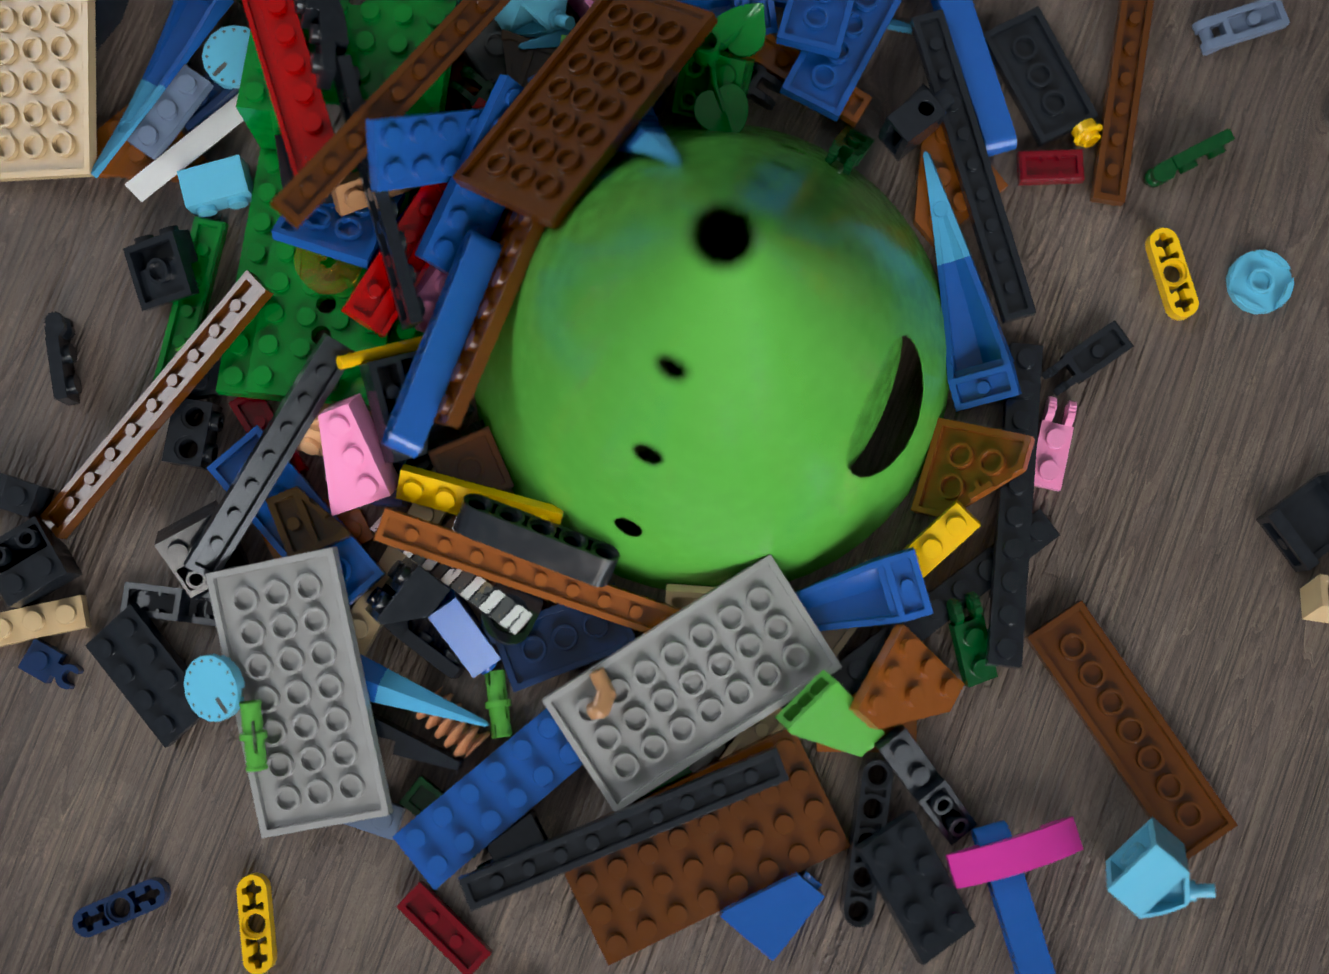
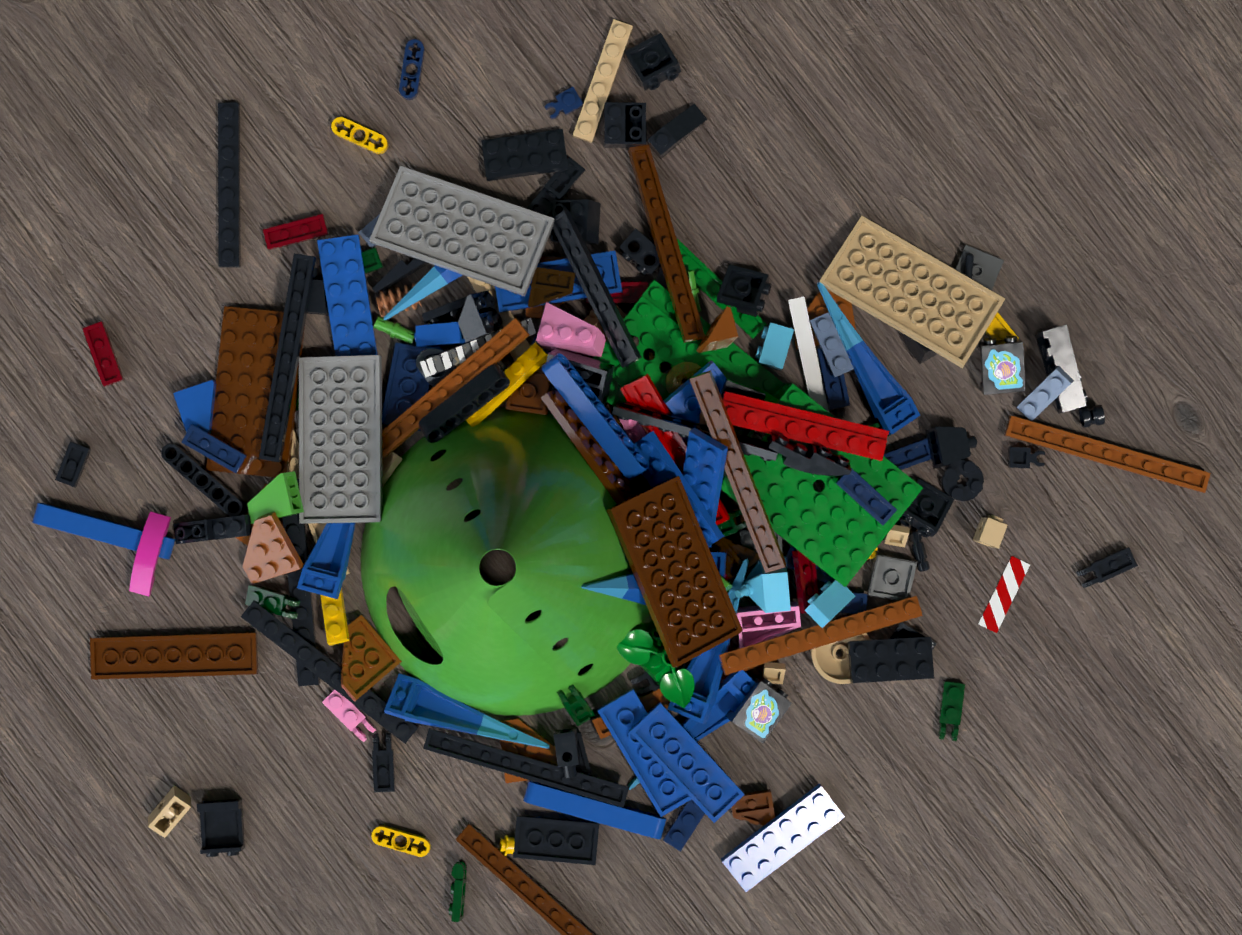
camera: 125 degrees right, 5 degrees up
(61, 358) = (730, 206): black hinge -> none
(214, 687) = (492, 187): medium azure tile -> none
(225, 55) = (842, 399): medium azure tile -> none
(227, 254) = (721, 332): none -> dark orange slope
(255, 759) = (453, 194): bright green pin -> none
(377, 353) = (615, 382): yellow bar -> none
(604, 697) = (360, 389): medium nougat arm -> none
(814, 852) = (214, 448): none -> dark blue plate
(915, 887) = (164, 490): black plate -> none
(1050, 167) = (501, 813): dark red plate -> none
(1153, 873) = (95, 617): medium azure piece -> none
(1259, 282) = (367, 886): medium azure tile -> none

